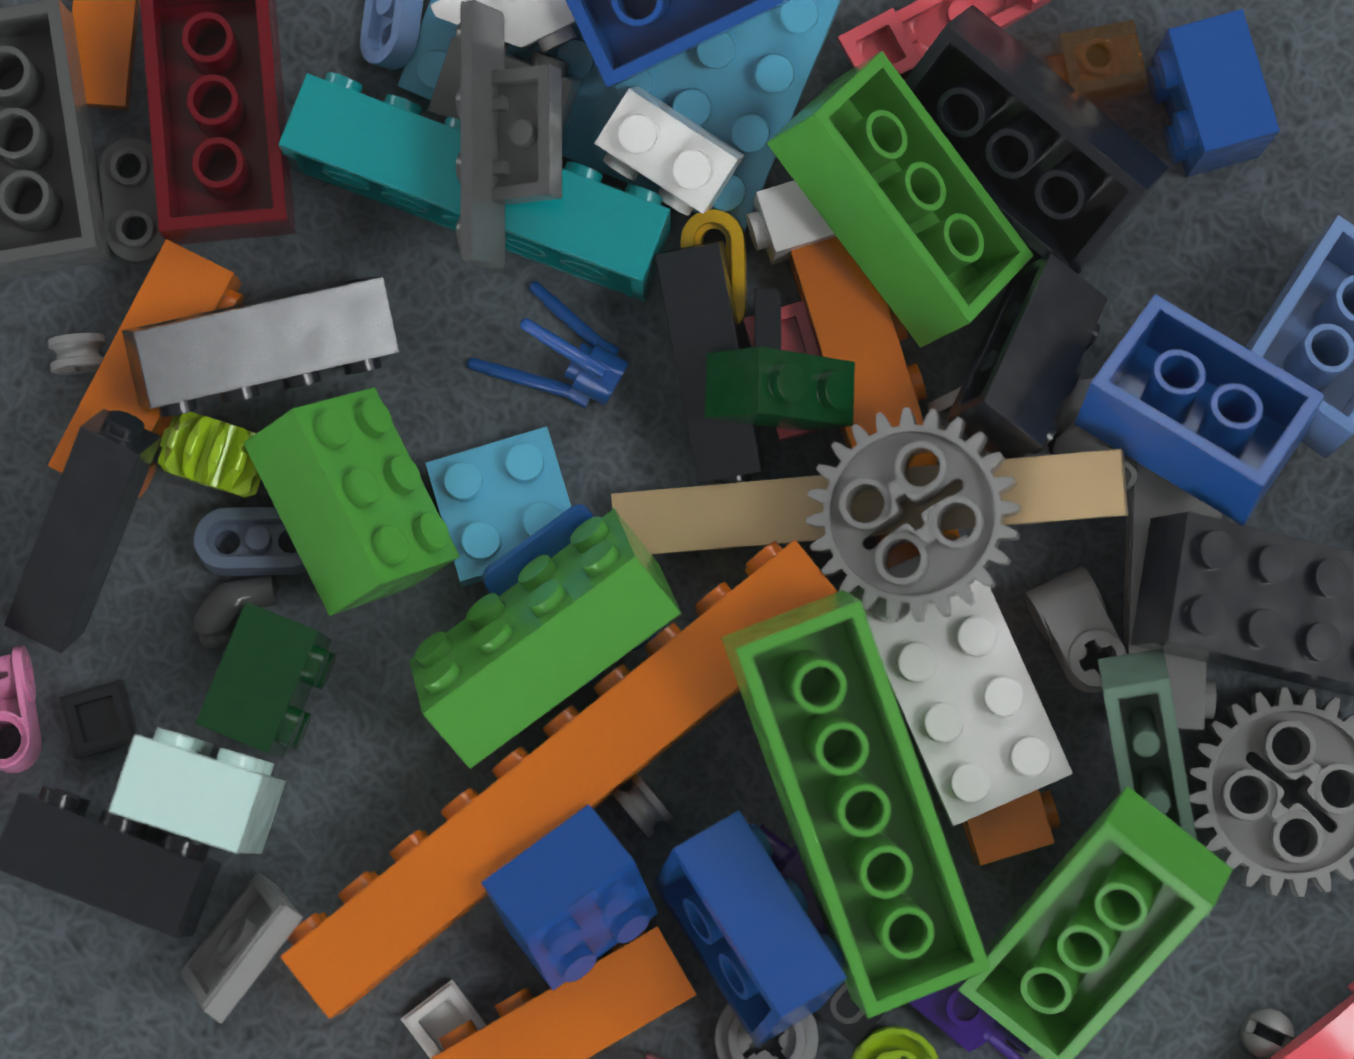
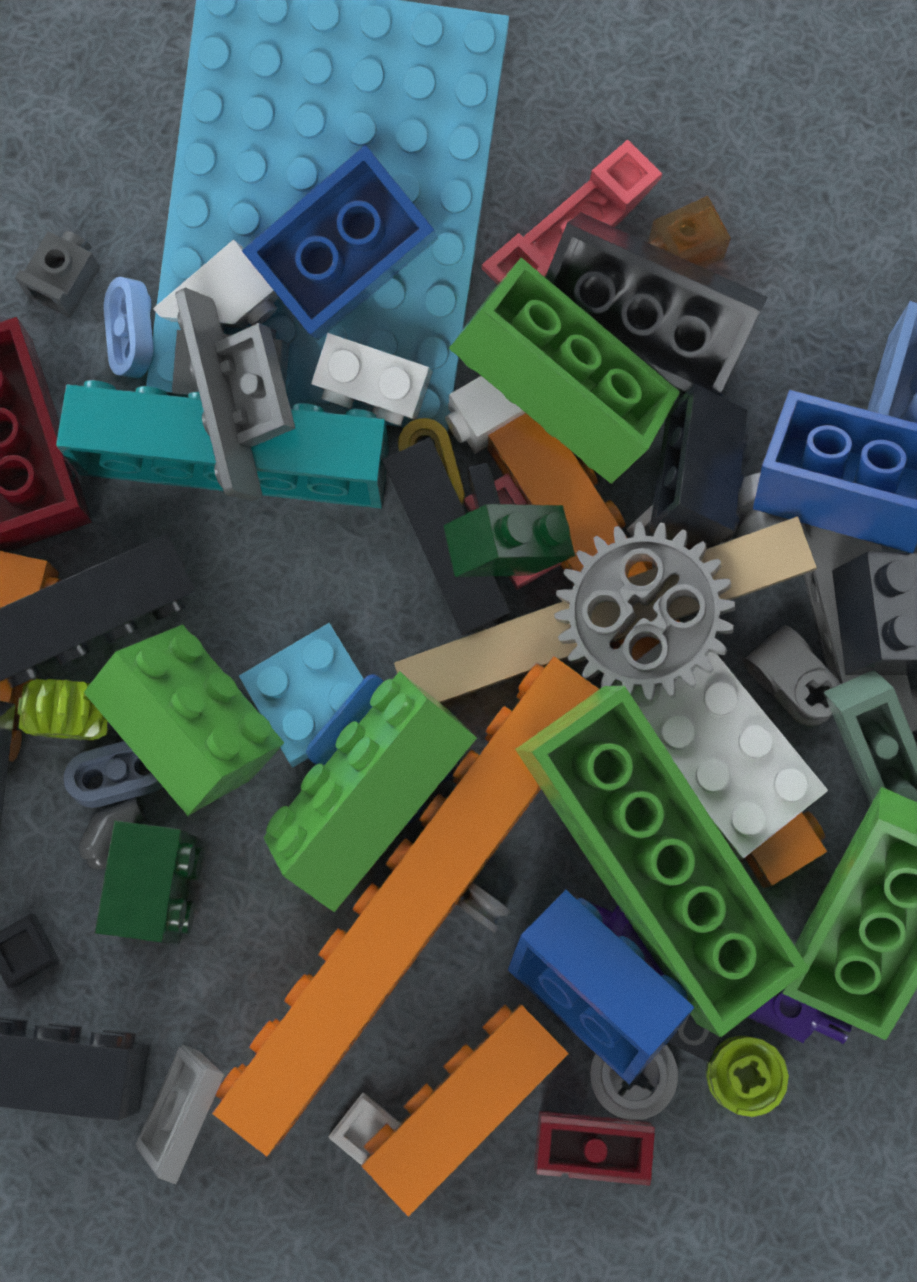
camera: 15 degrees left, 5 degrees down
(186, 791) = (110, 990): light aqua brick -> none
(571, 898) = (445, 999): blue brick -> none
(593, 368) = (354, 566): blue plant -> none
(1212, 94) = (785, 235): blue brick -> none

